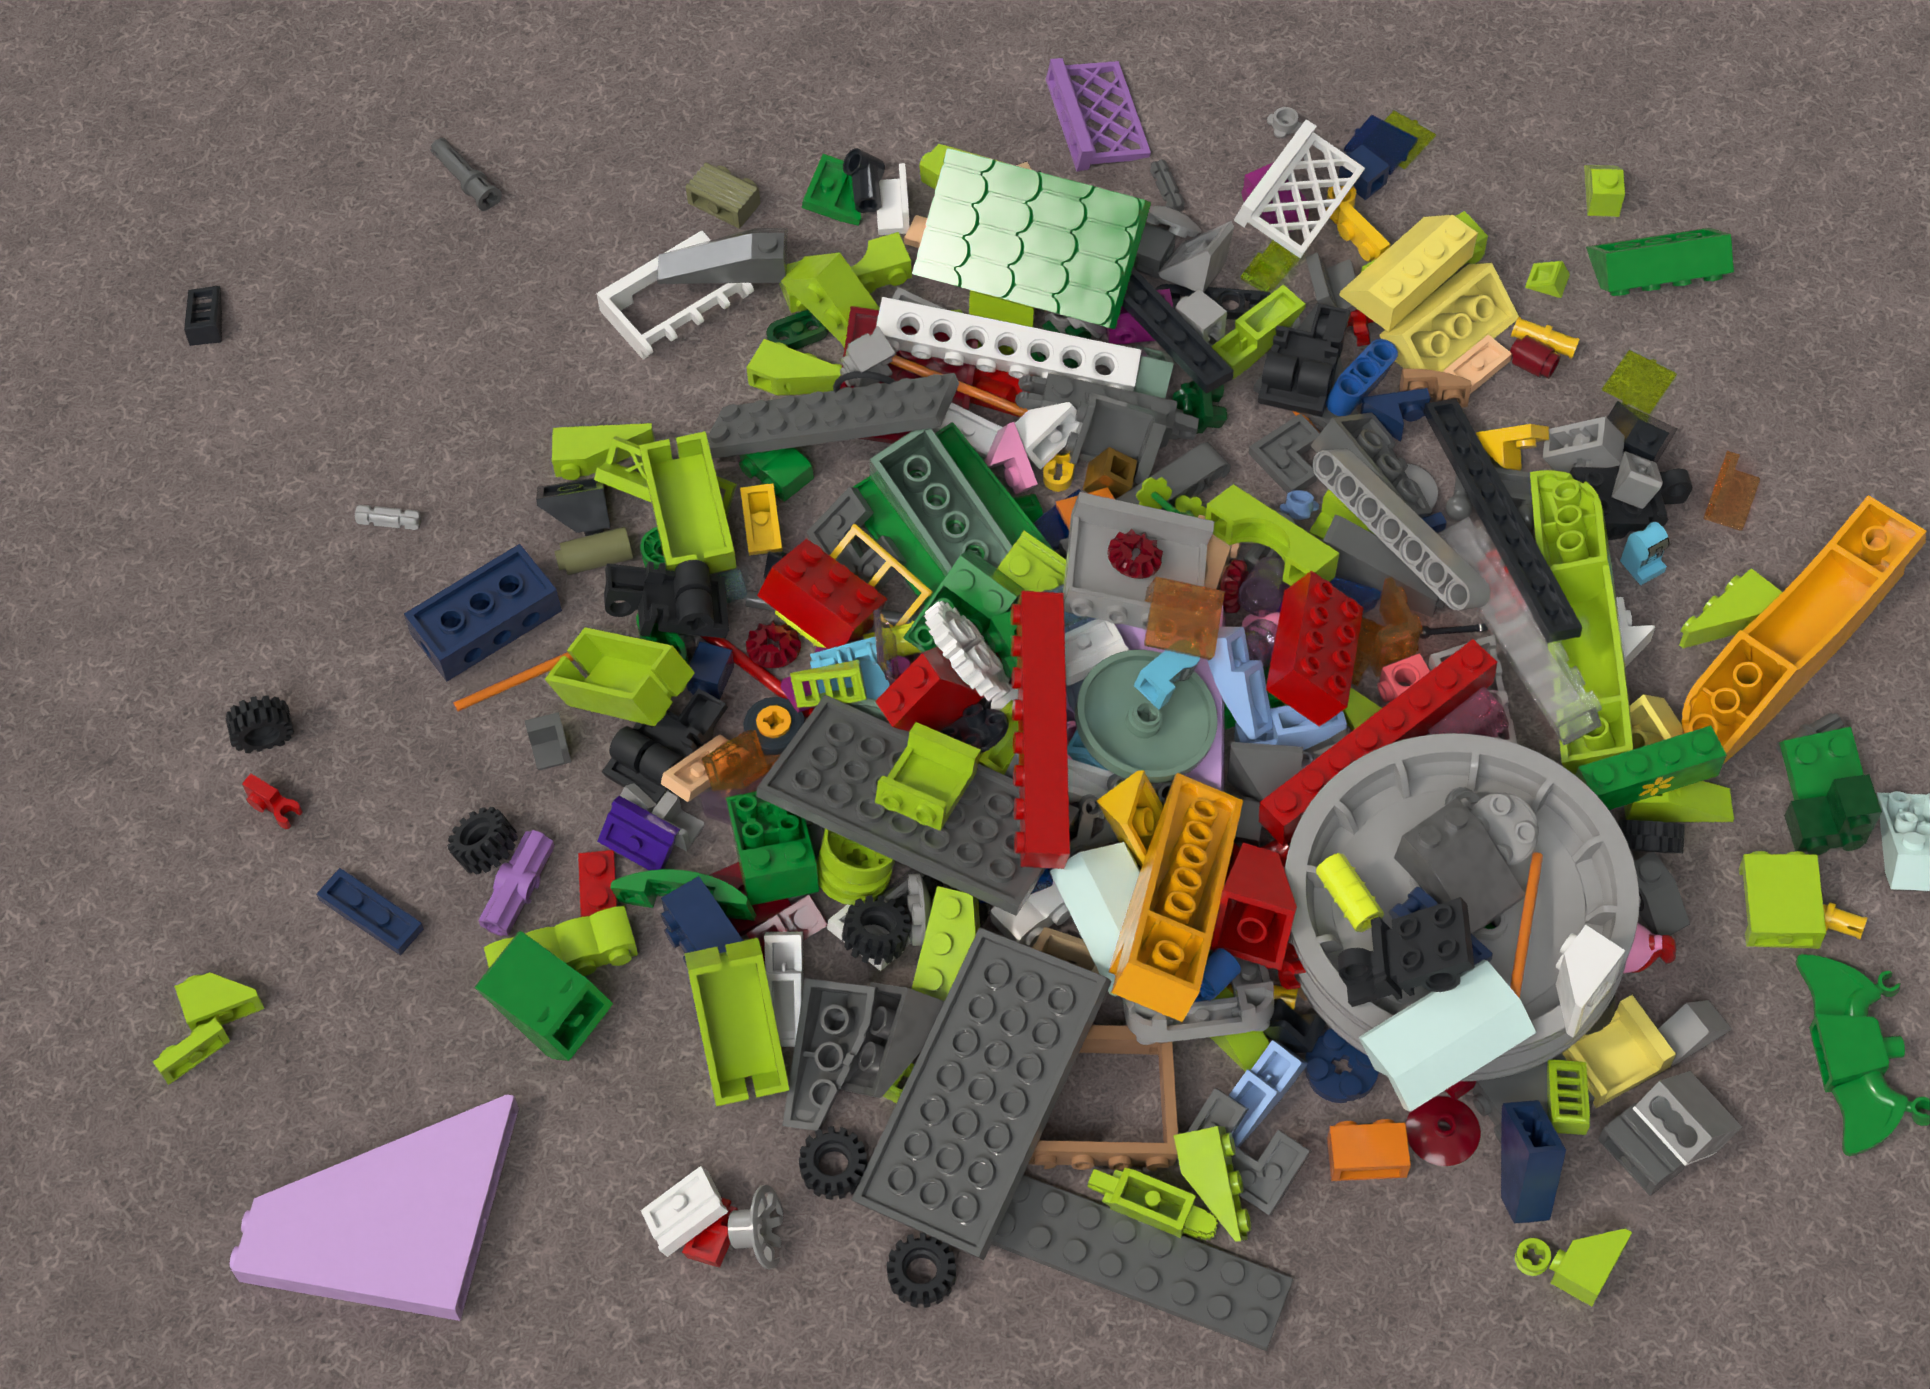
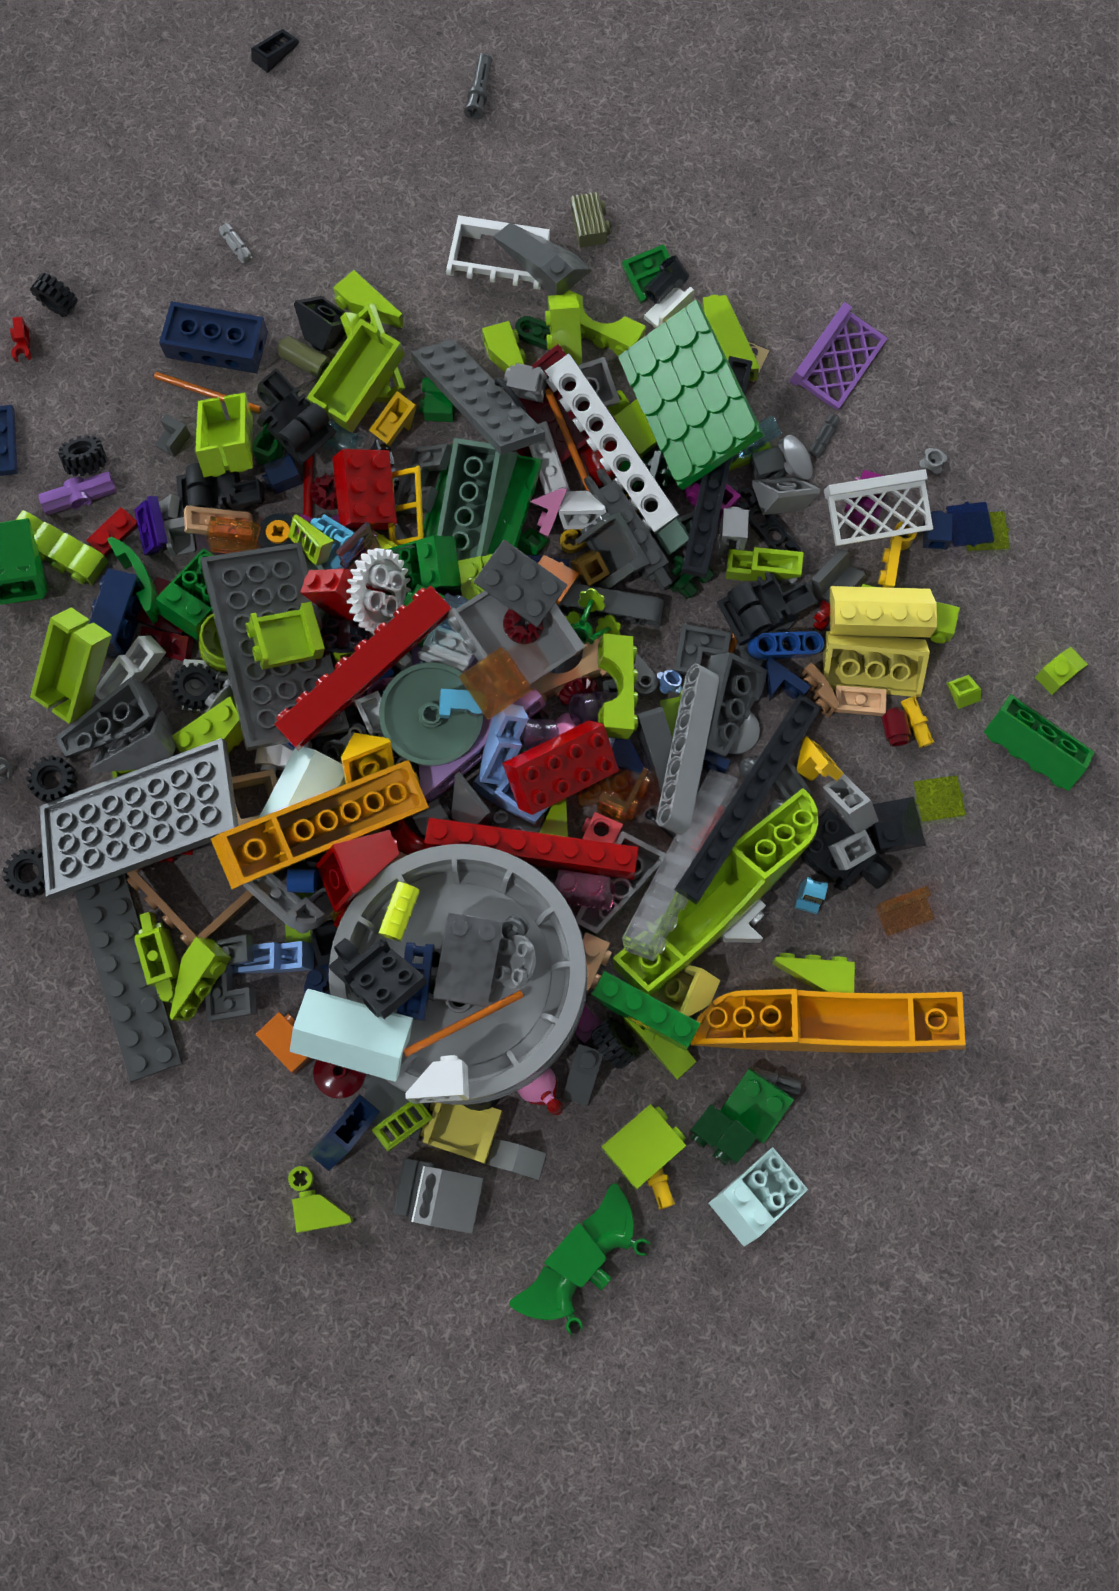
camera: 45 degrees right, 15 degrees up
(1099, 514) = (520, 583): none -> dark grey plate
(1270, 267) = (820, 535): clear neon green slope -> none

